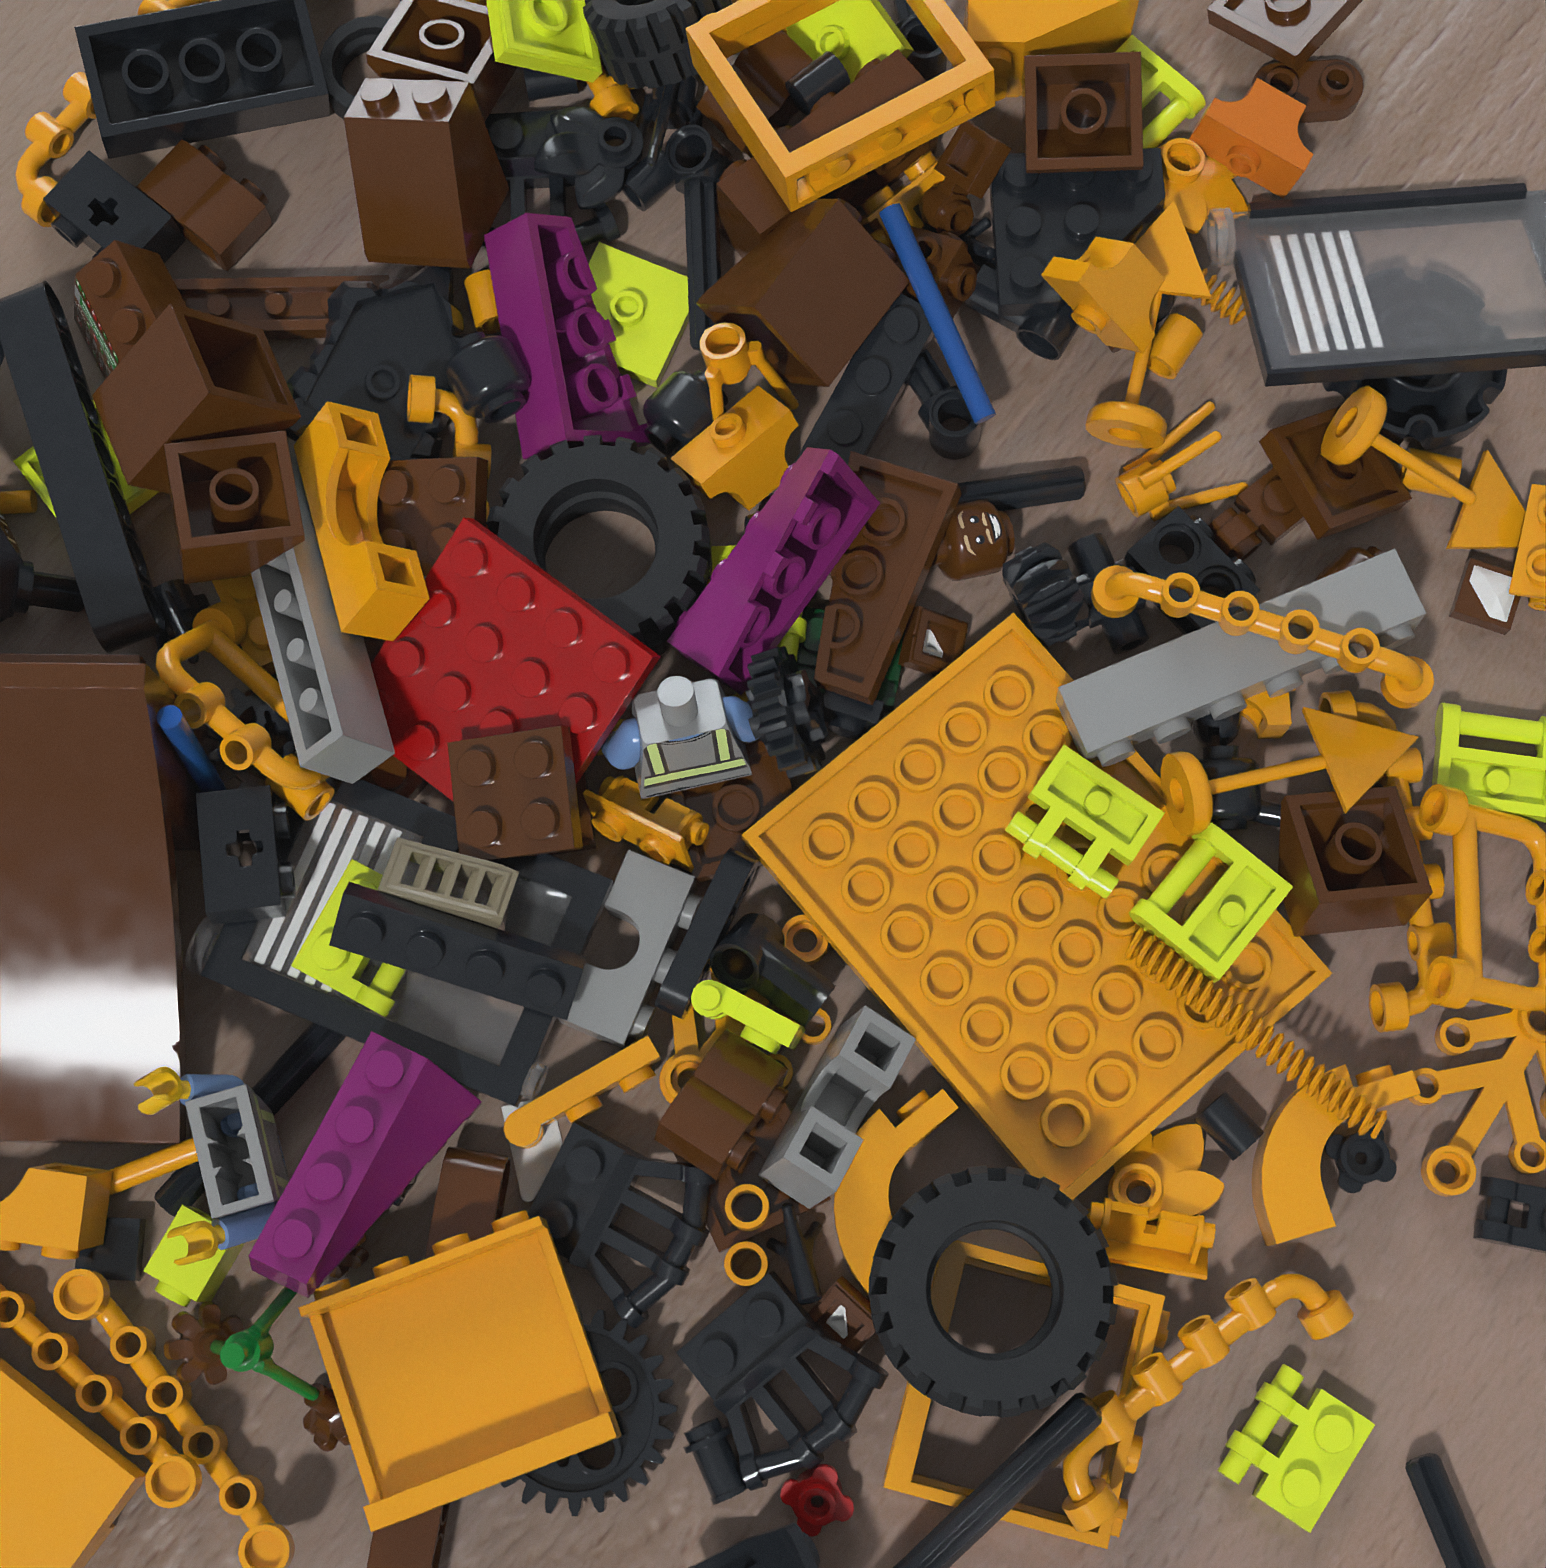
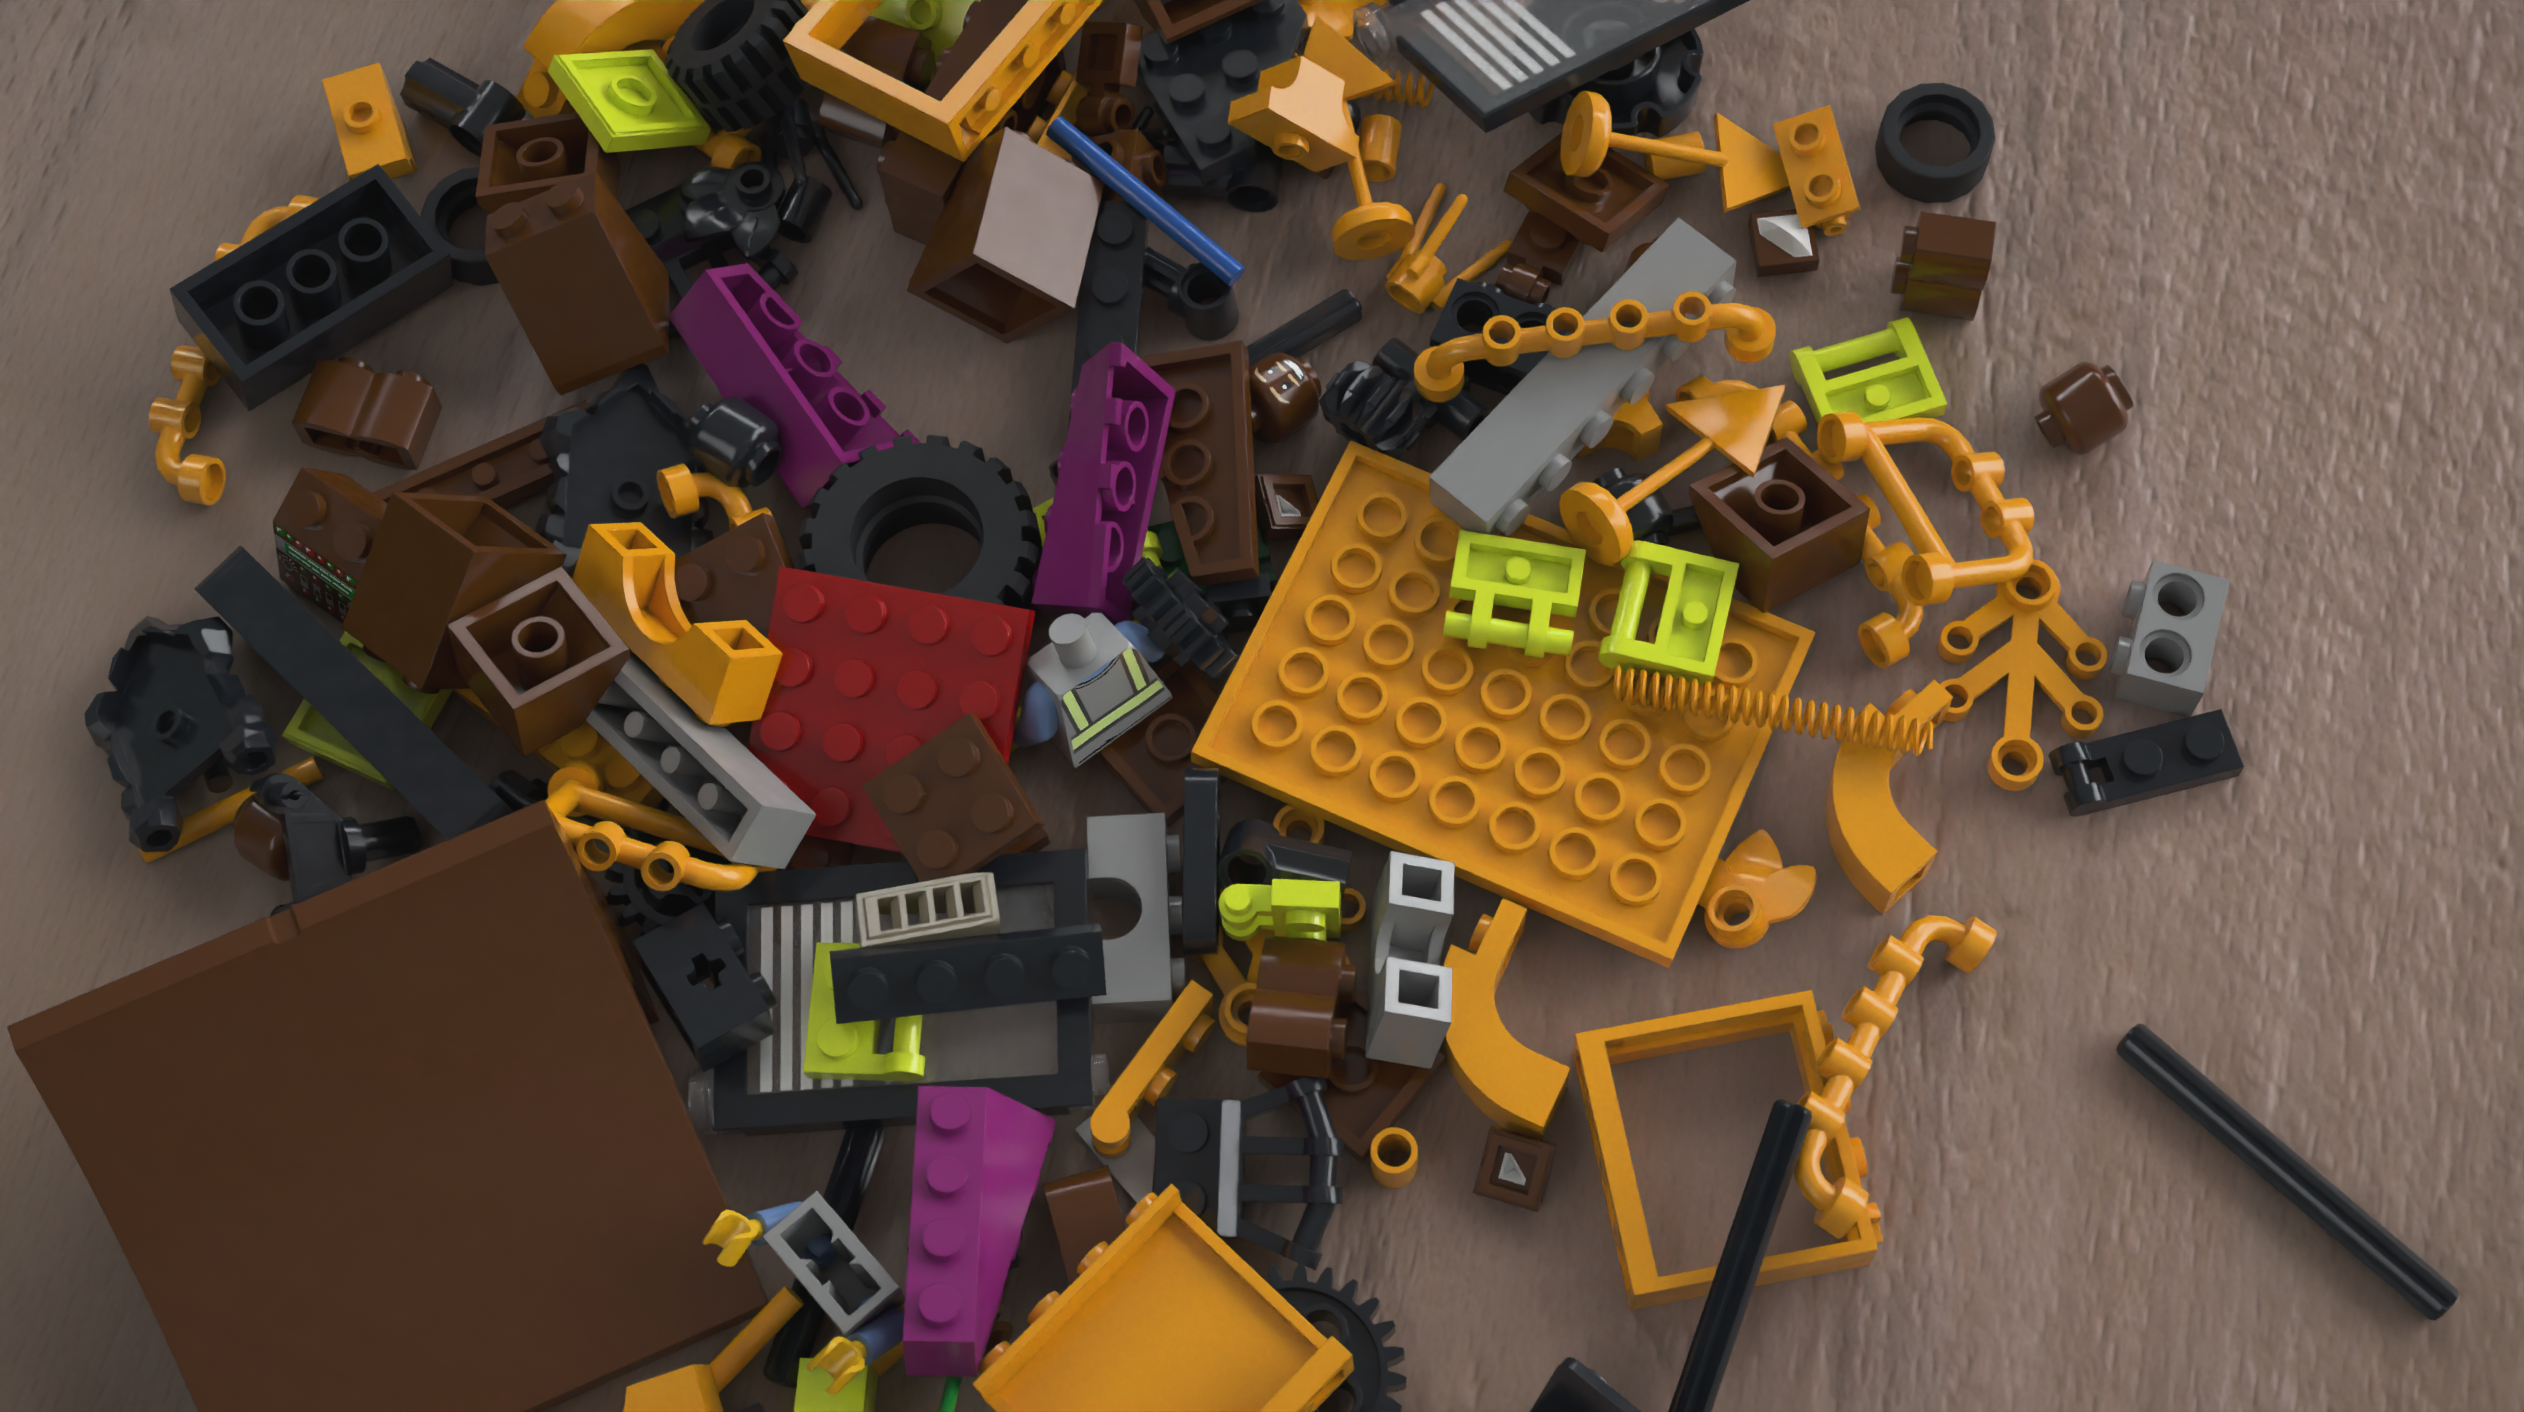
camera: 25 degrees left, 10 degrees down
(95, 196) = (261, 456): black brick -> none
(189, 749) = (609, 895): blue bar -> none
(306, 802) = (739, 907): light orange hinge -> none
(482, 301) = (691, 381): light orange hinge -> none
(547, 85) = (658, 164): black hinge -> none
(644, 309) = (859, 325): neon yellow plate -> none
(661, 836) = (1069, 793): light orange hinge -> none
(678, 411) = (943, 398): black head -> none
(701, 213) = (859, 193): black axle -> none
(715, 1460) = (1456, 1359): black pin -> none
(729, 361) = (965, 327): light orange plant -> none
(740, 450) = (1017, 406): light orange brick -> none
(747, 1189) = (1370, 1076): light orange hinge -> none
(750, 1347) = (1437, 1234): black plate -> none
(799, 1255) = (1441, 1124): black bar -> none
(816, 80) = (926, 44): black hinge -> none
(820, 1482) = (1574, 1328): red plate -> none
(1078, 1274) = (1663, 965): black tyre -> none
(1170, 1245) = (1739, 960): light orange hinge -> none
(1225, 728) = (1593, 461): black hinge -> none
(1229, 1126) = (1790, 816): black hinge -> none
(1311, 1458) = (2026, 1089): neon yellow plate -> none
(1352, 1174) = (1932, 772): black plate -> none

